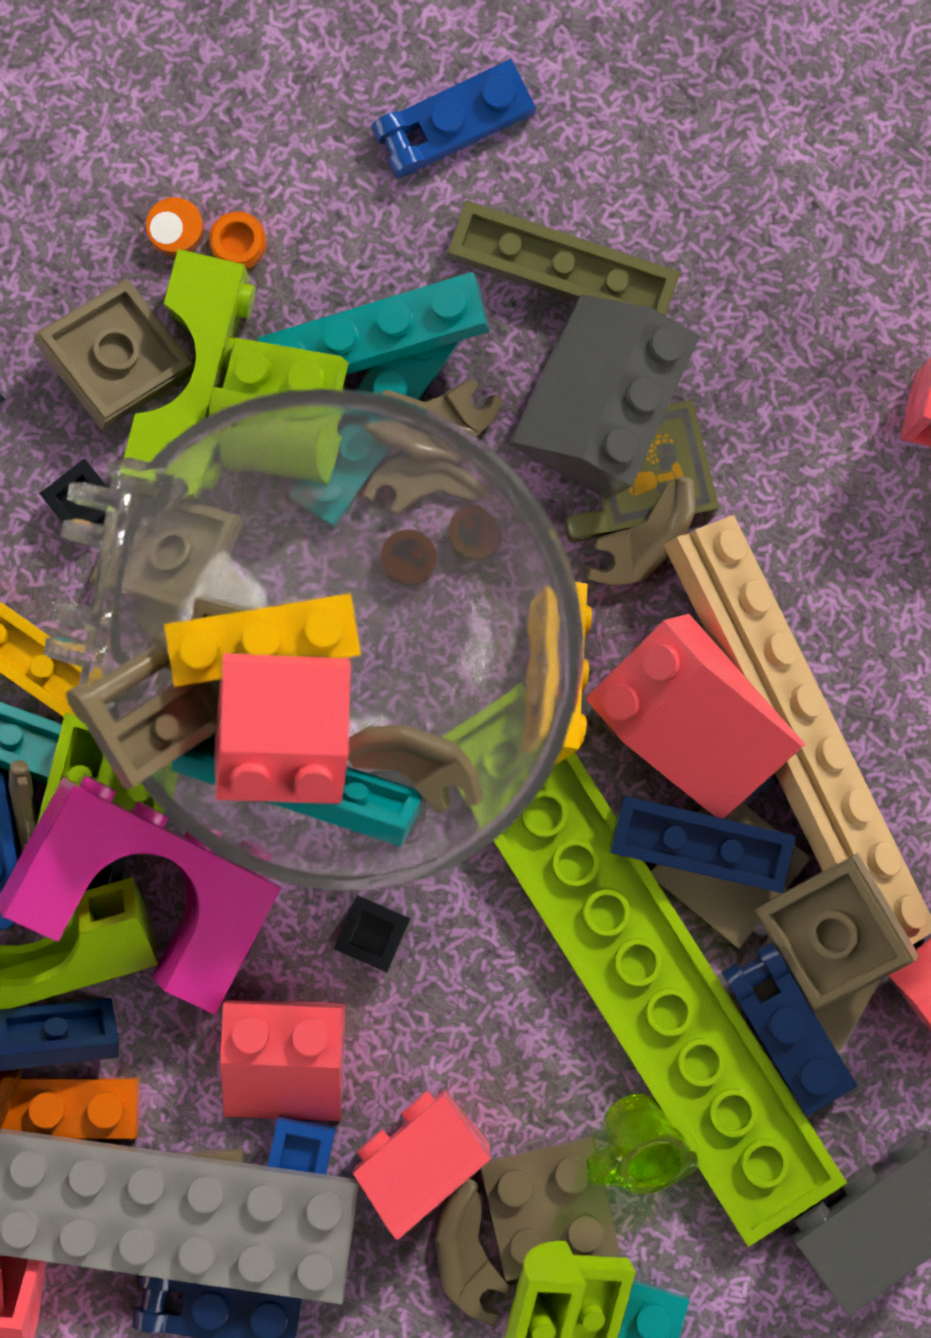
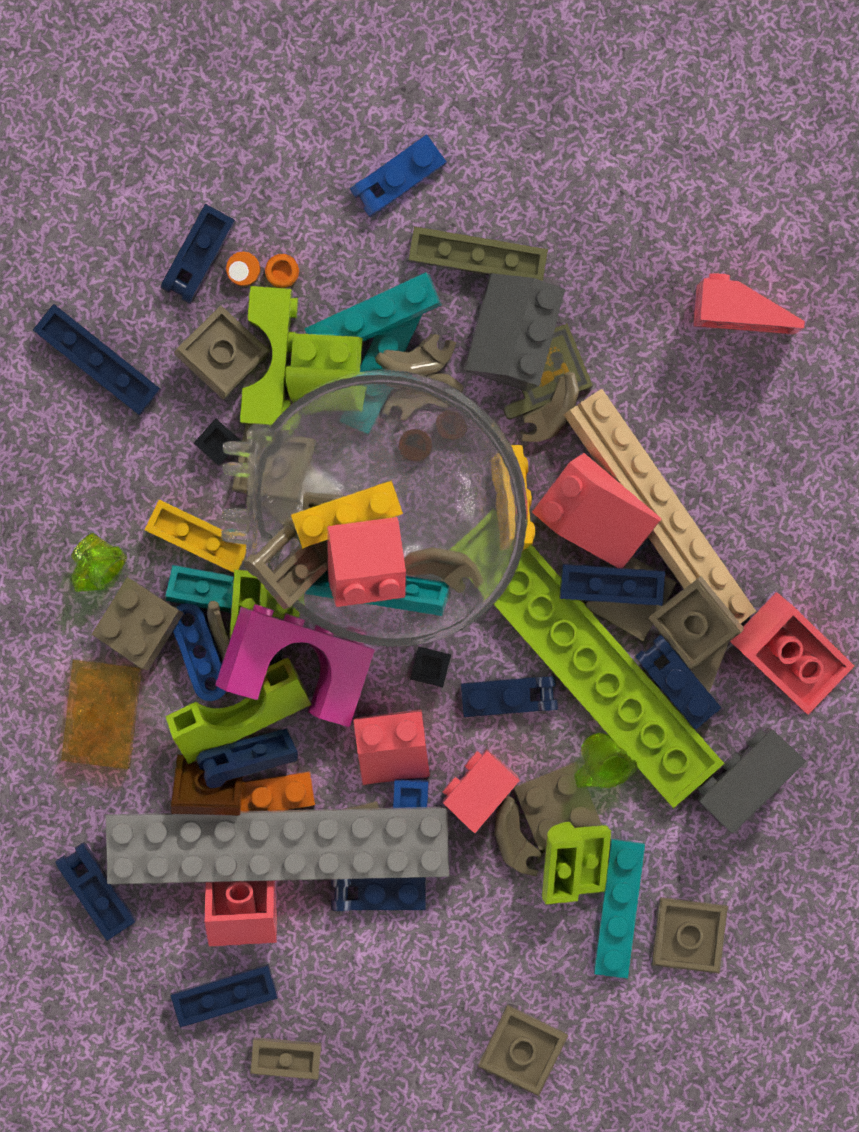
camera: 10 degrees left, 5 degrees up
(105, 188) = (198, 252): none -> dark blue plate
(494, 1005) = (507, 696): none -> dark blue plate

